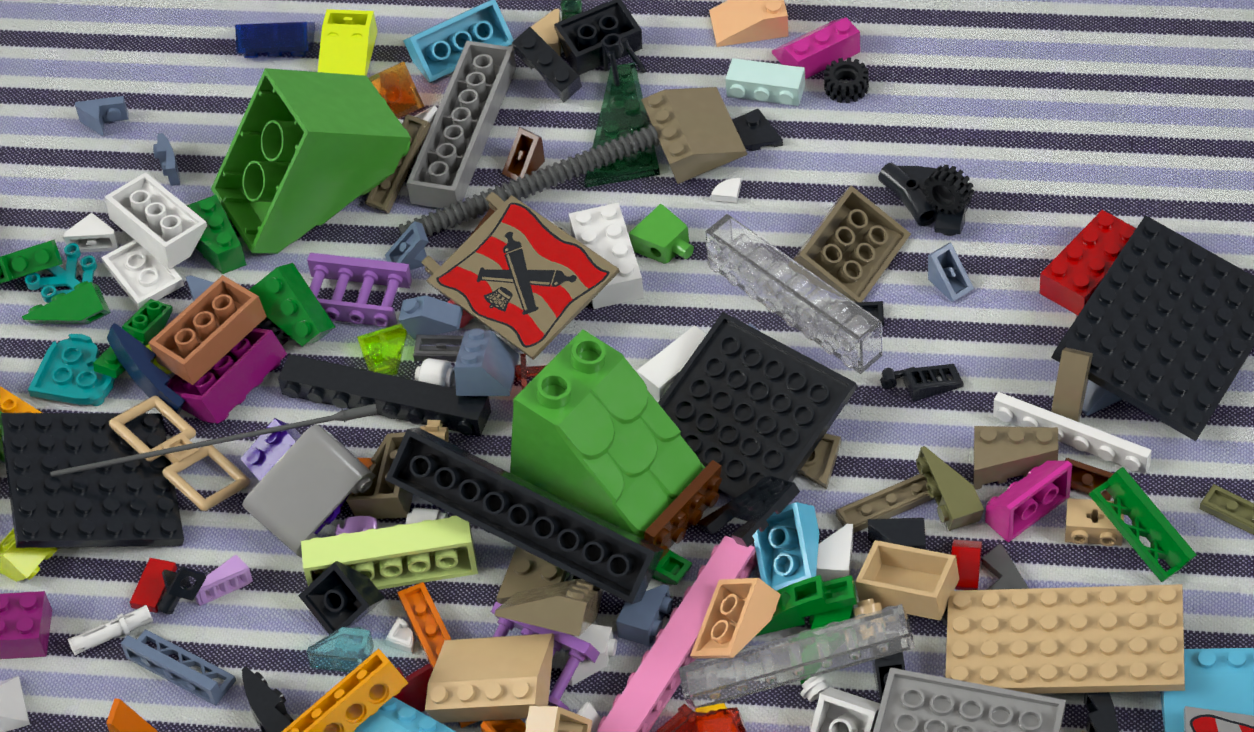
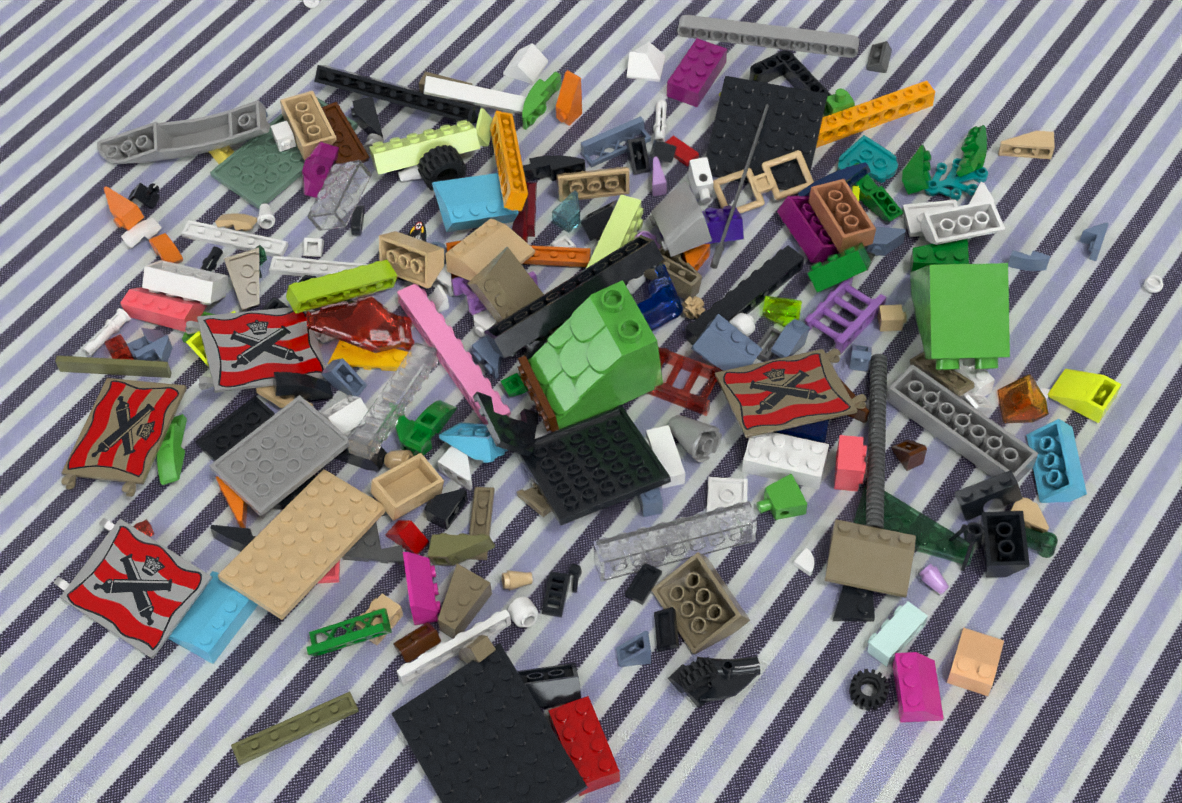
camera: 115 degrees right, 5 degrees up
(142, 49) = (1153, 284): none -> white plate
(194, 621) = (638, 155): none -> black slope
(207, 522) = (700, 179): none -> white torso
(274, 38) = (1123, 357): clear blue slope -> none
(274, 644) = (594, 183): none -> tan slope
(332, 242) = (891, 317): none -> tan brick
(579, 180) = (850, 463): none -> coral piece
(636, 336) = (695, 436): none -> light grey cone
(676, 79) = (934, 579): none -> lavender cone
(689, 292) = (726, 492): none -> white tile
(734, 617) = (442, 383): light nougat slope -> none
(901, 264) = (666, 629): none -> black tile
(944, 424) = (516, 579): none -> tan cone
(979, 393) = (523, 612): none -> white head
(1039, 324) = (553, 684): none -> black slope

